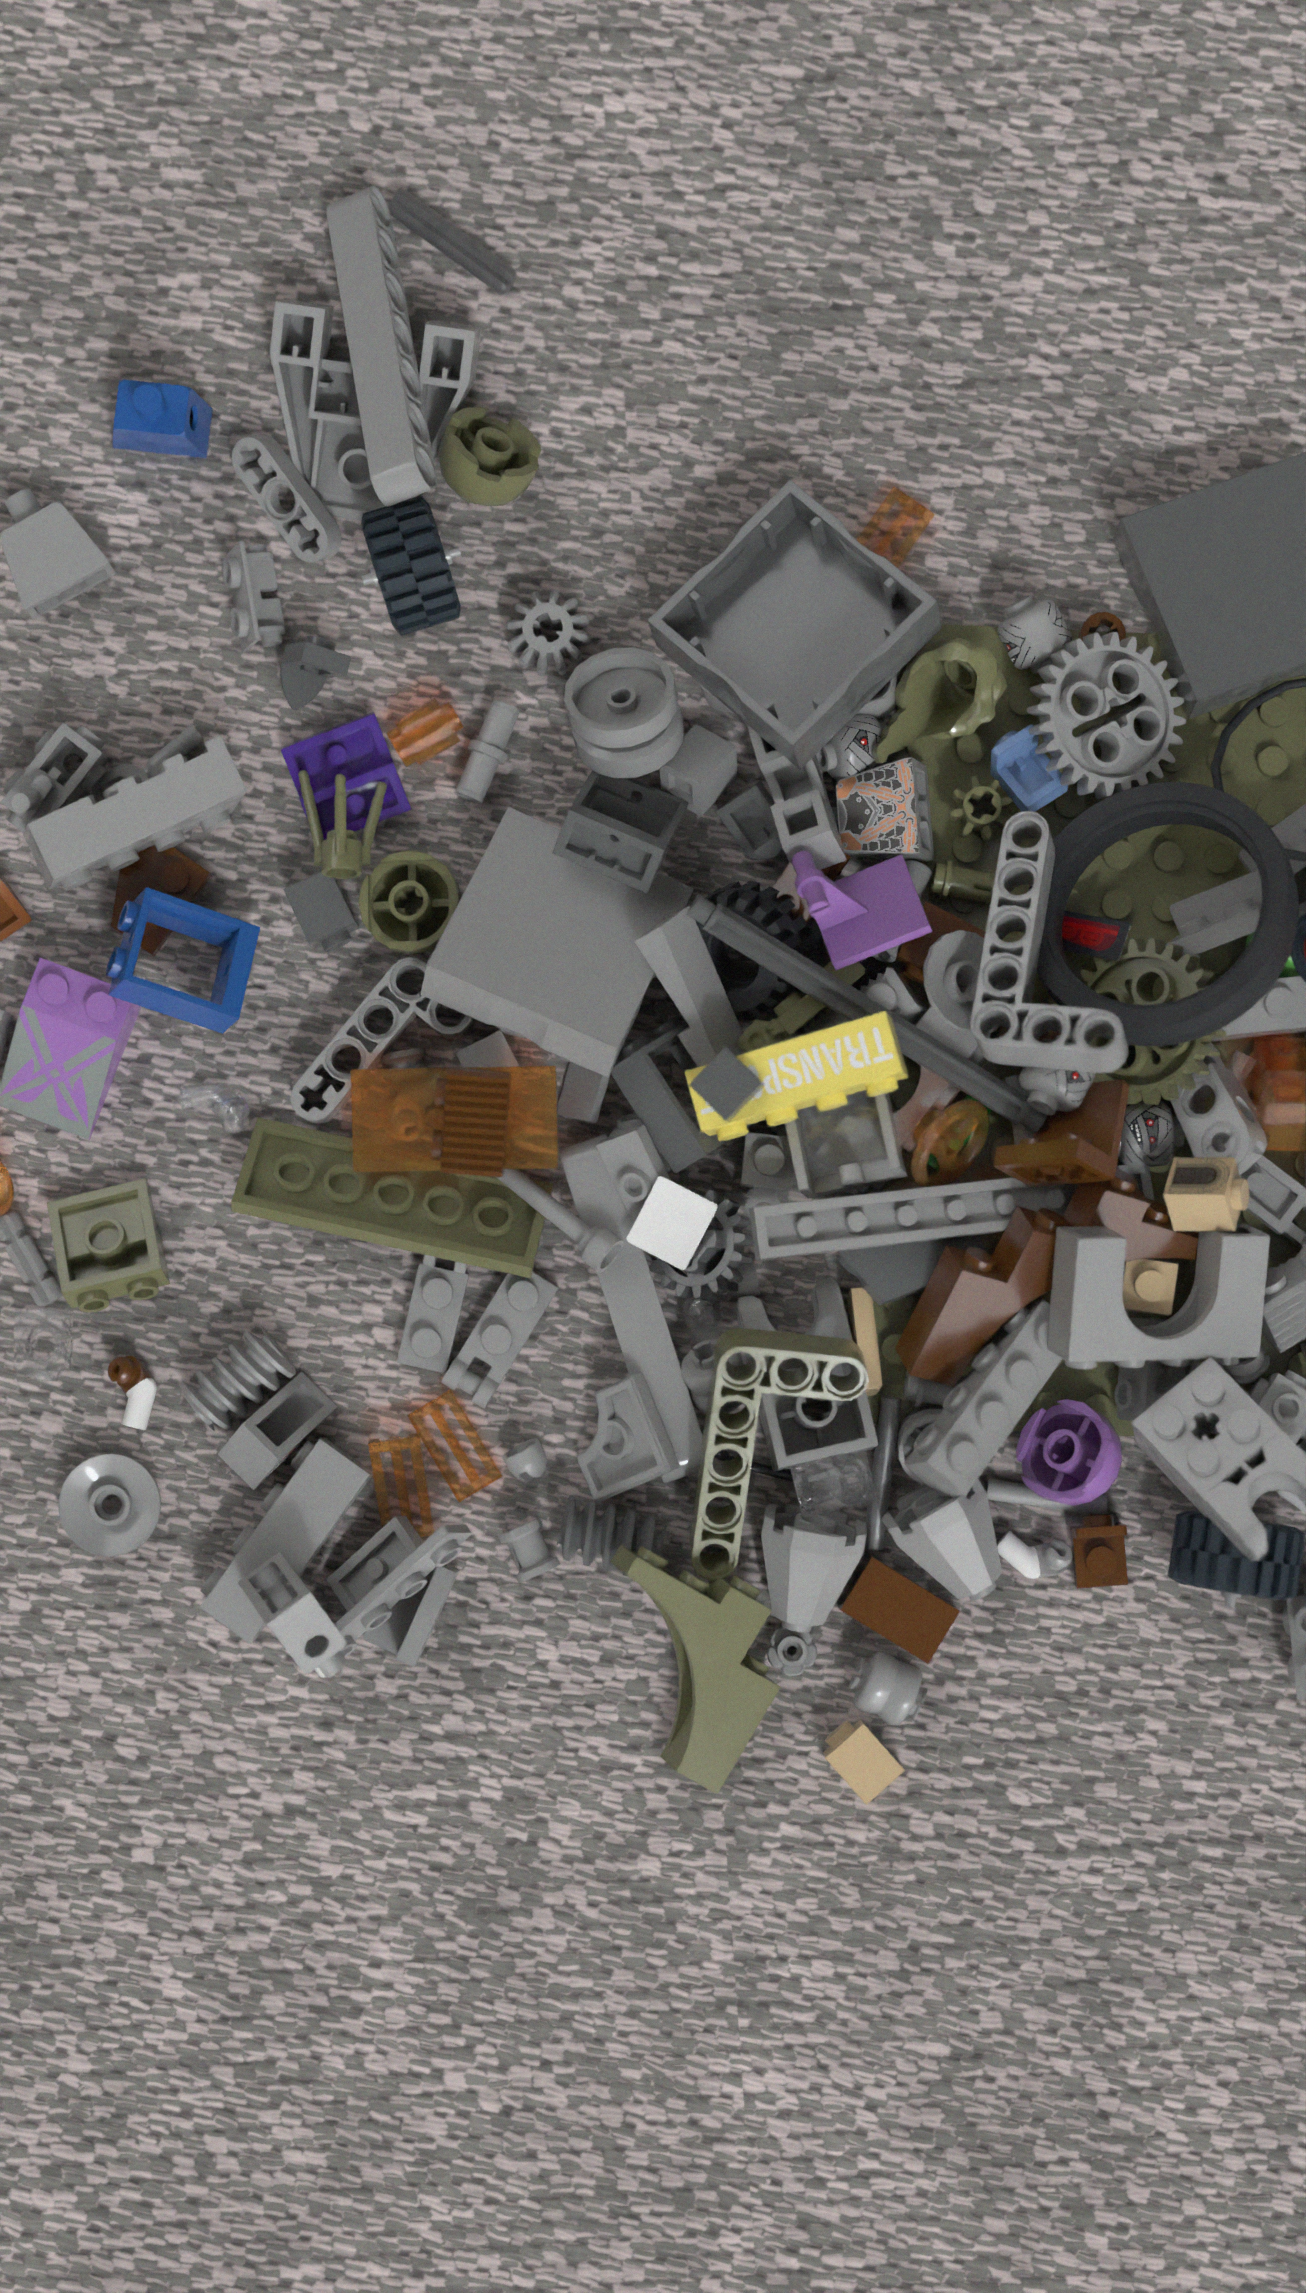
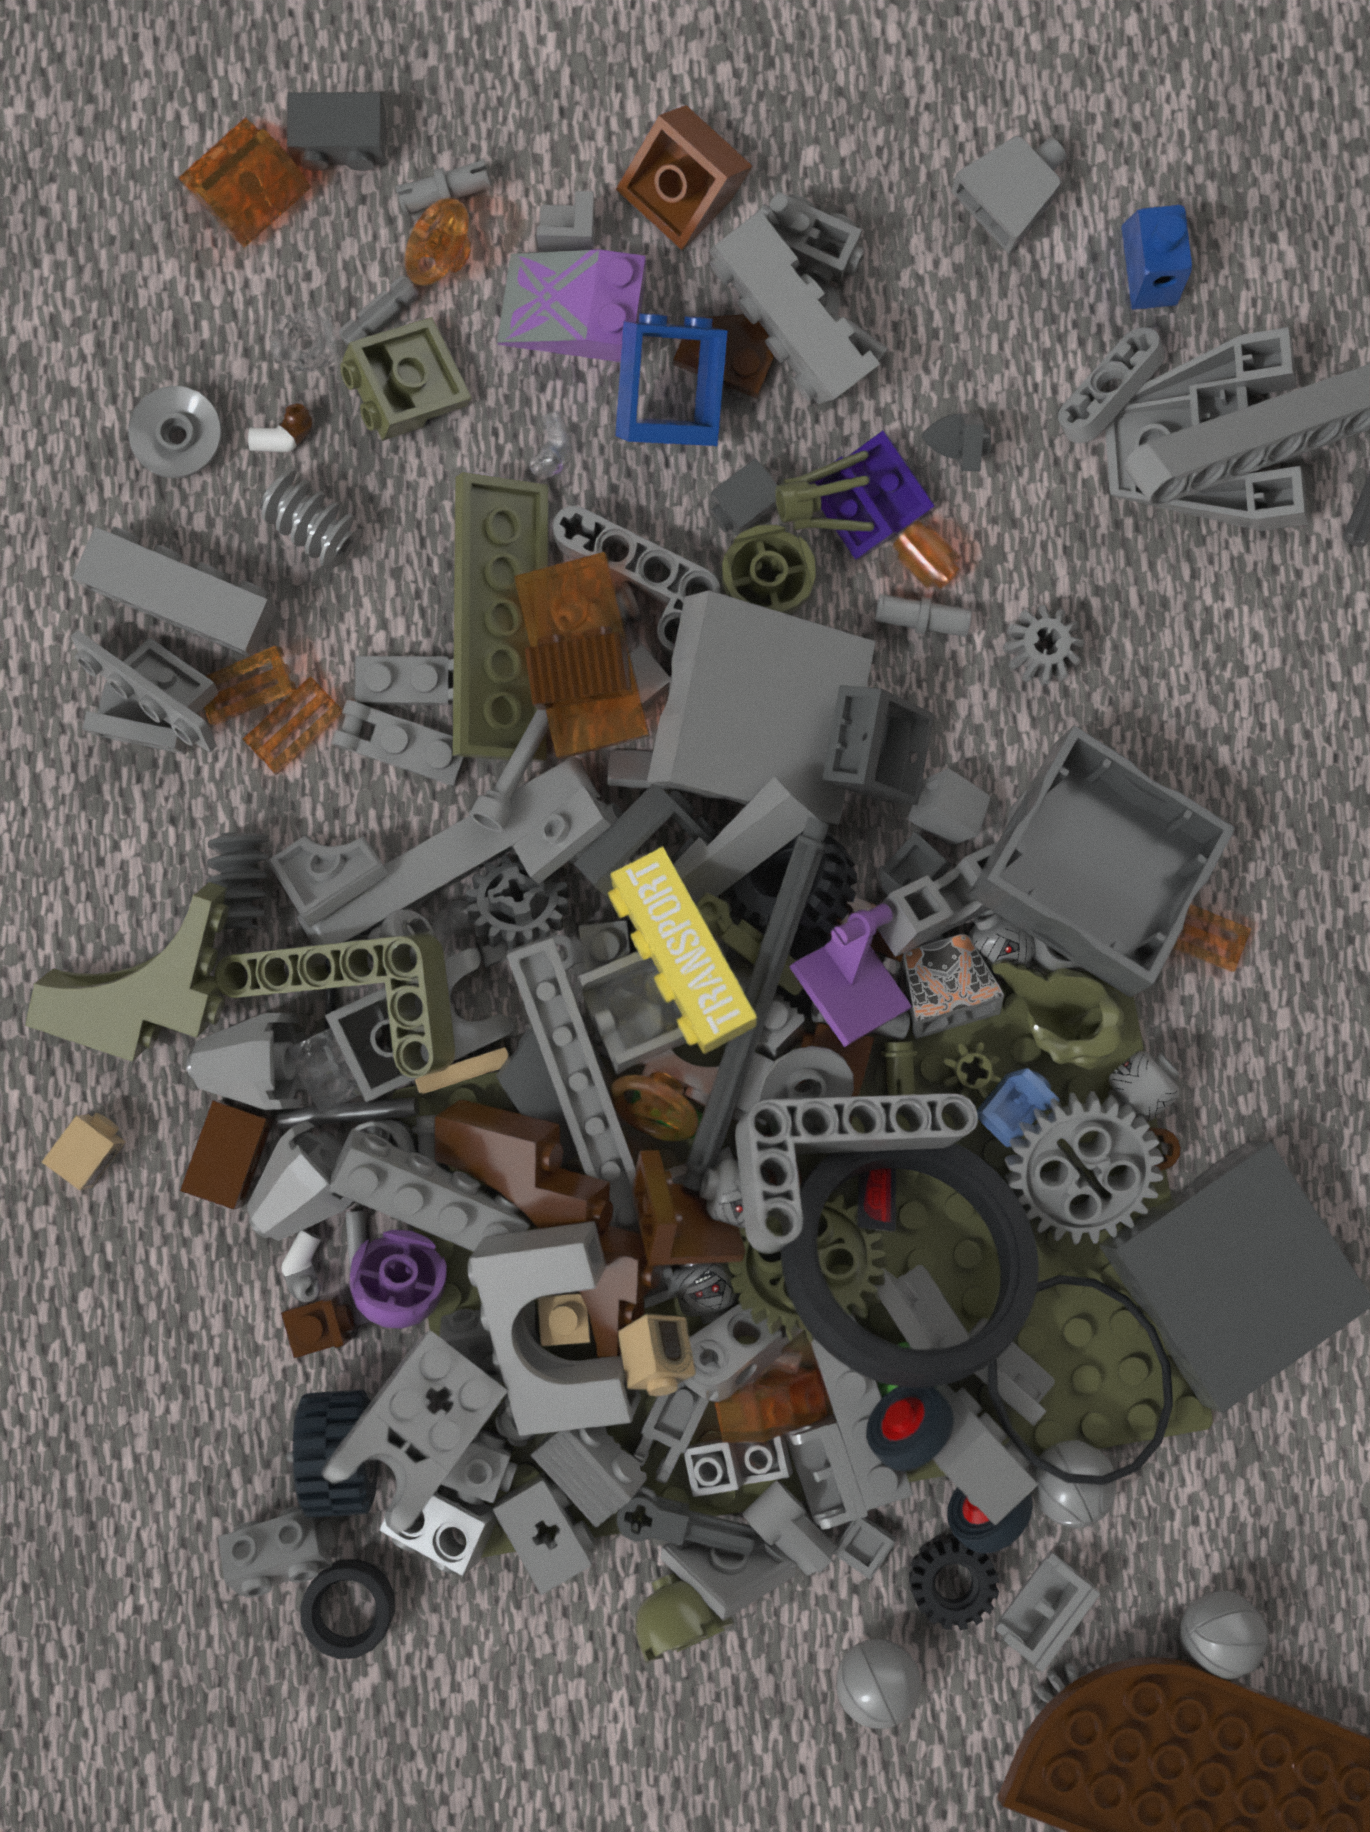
camera: 70 degrees right, 0 degrees up
(247, 577) = (1032, 368): light grey hinge -> none
(276, 1430) = (272, 563): light grey slope -> none
(301, 1623) = (87, 620): light grey torso -> none
(411, 565) = (1075, 504): black wheel -> none
(487, 458) = (1191, 553): olive cylinder -> none
(526, 1460) = (293, 791): light grey hinge -> none
(529, 1550) = (212, 811): light grey bush -> none
(624, 712) = (985, 726): light grey wheel -> none
(671, 1223) = (527, 870): white sticker -> none
(726, 1084) = (657, 886): dark grey tile -> none
(791, 1664) = (159, 1066): light grey plate -> none
(888, 1688) = (154, 1159): light grey piece -> none

